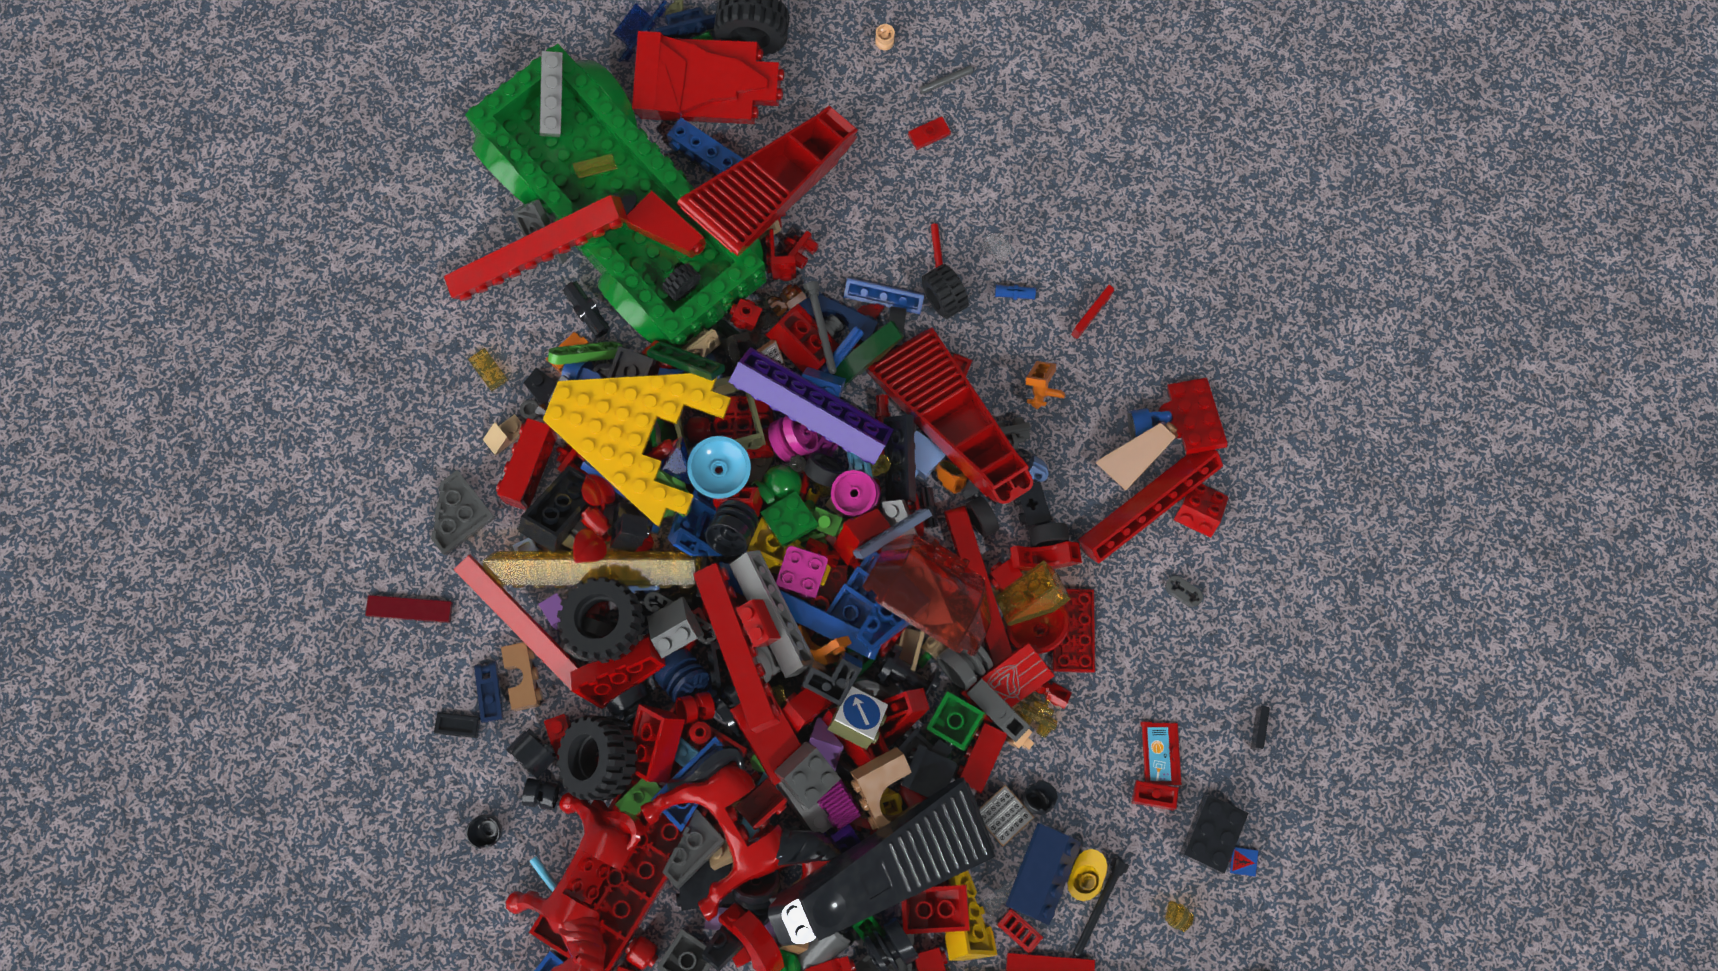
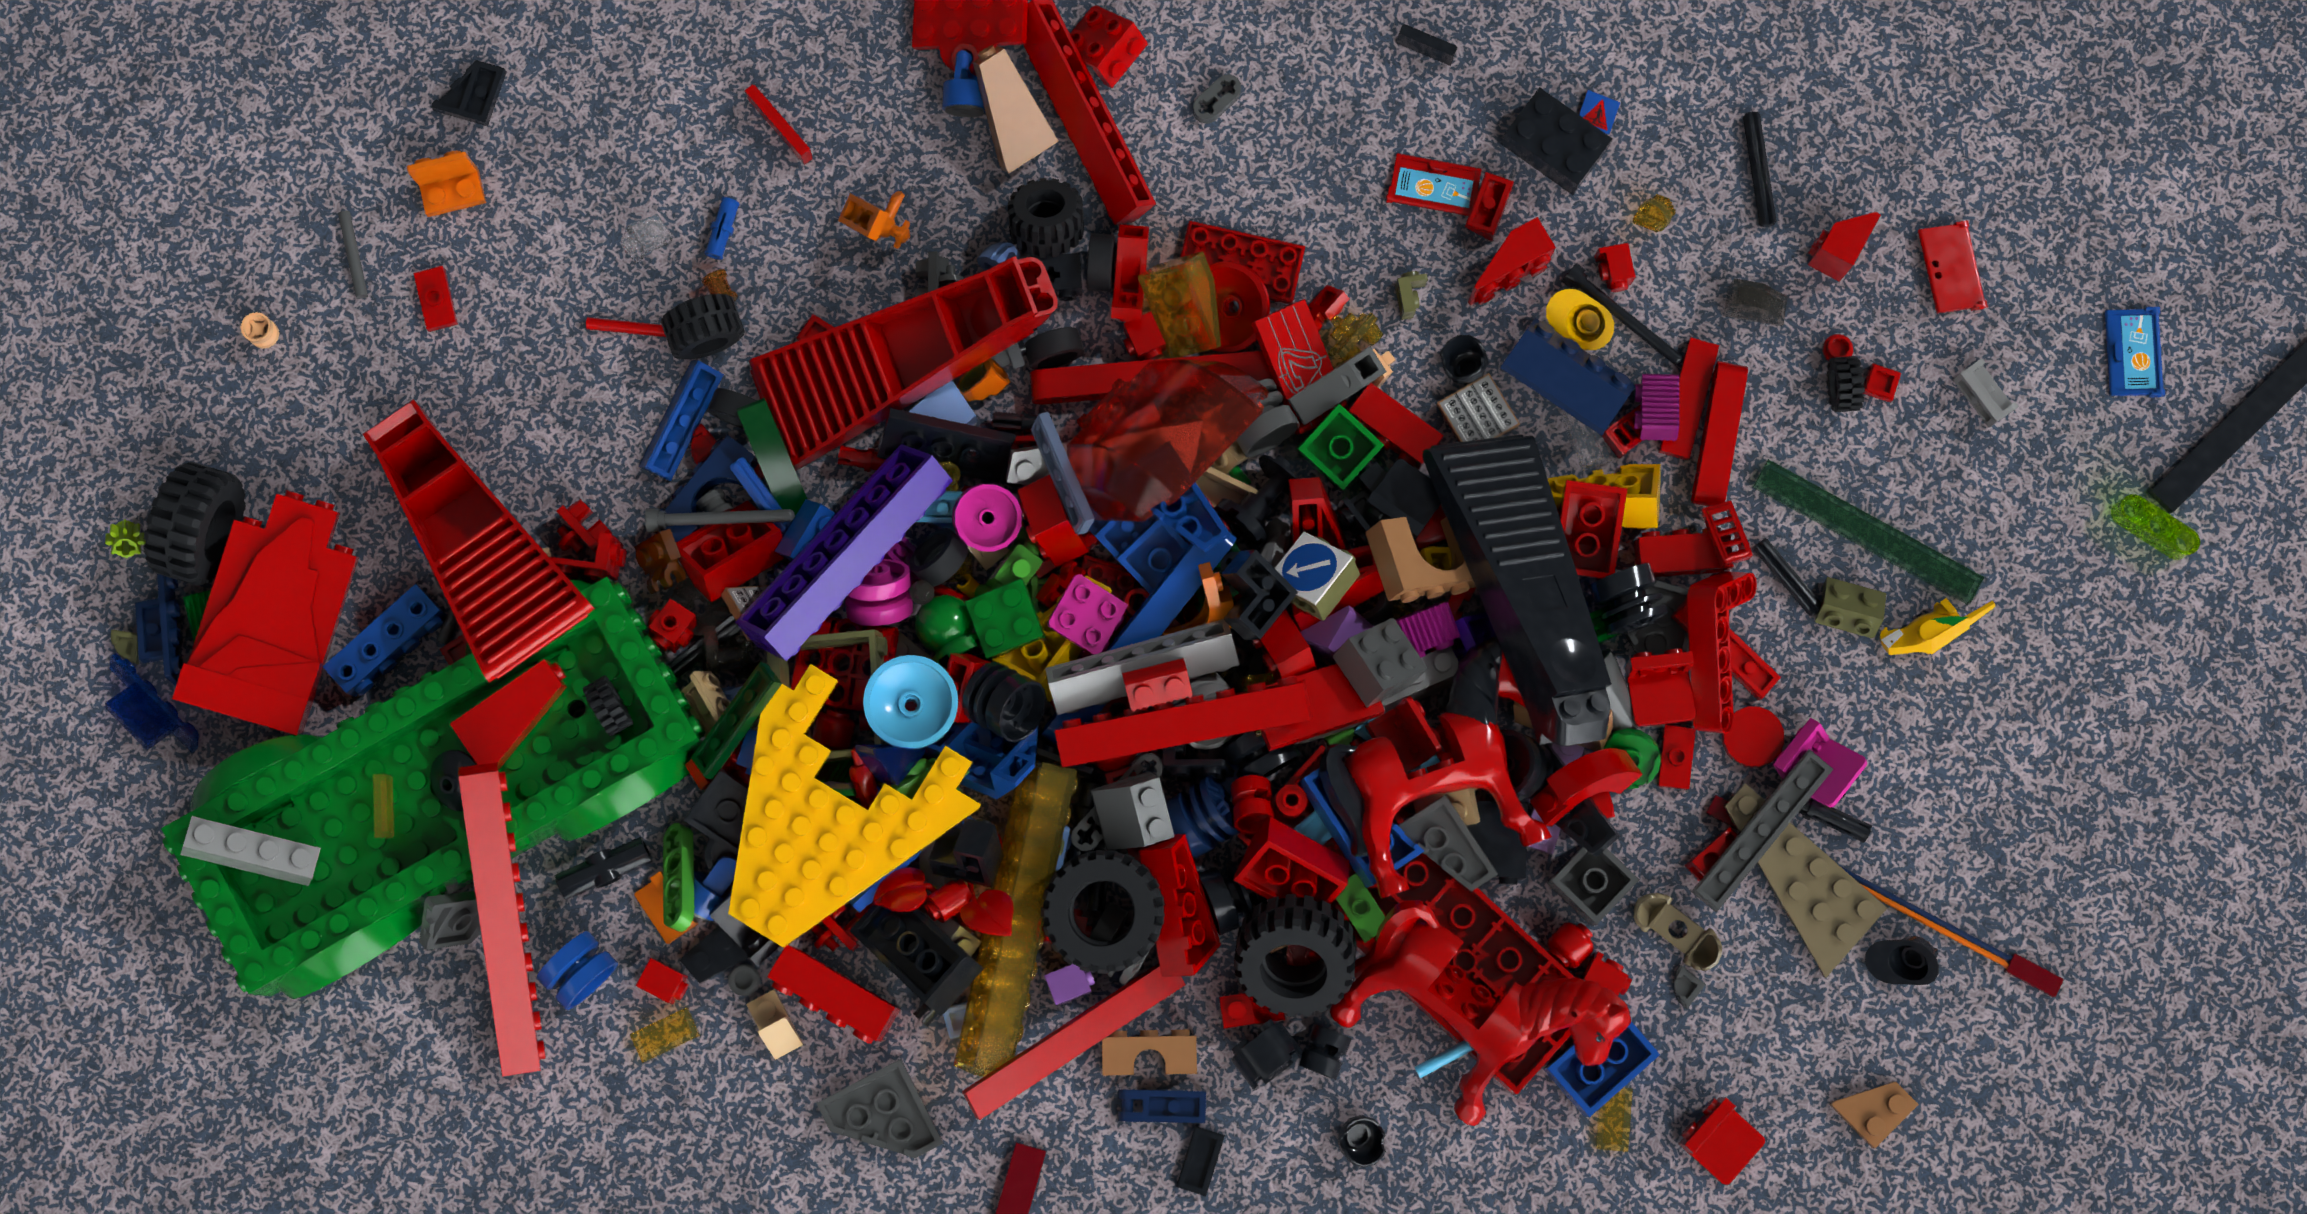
camera: 75 degrees left, 5 degrees up
(516, 305) = (577, 970): none -> blue wheel
(520, 360) = (663, 981): none -> red brick
(976, 298) = (718, 284): none -> clear orange bush
(1004, 122) = (447, 183): none -> orange bracket
(1036, 944) = (1658, 407): none -> magenta brick
(1066, 126) = (473, 94): none -> black wing
(1075, 750) = (1407, 299): none -> olive bracket
(1081, 486) = (1046, 217): none -> black tyre
(1123, 821) = (1522, 253): none -> red slope
(1132, 895) = (1616, 266): none -> red brick

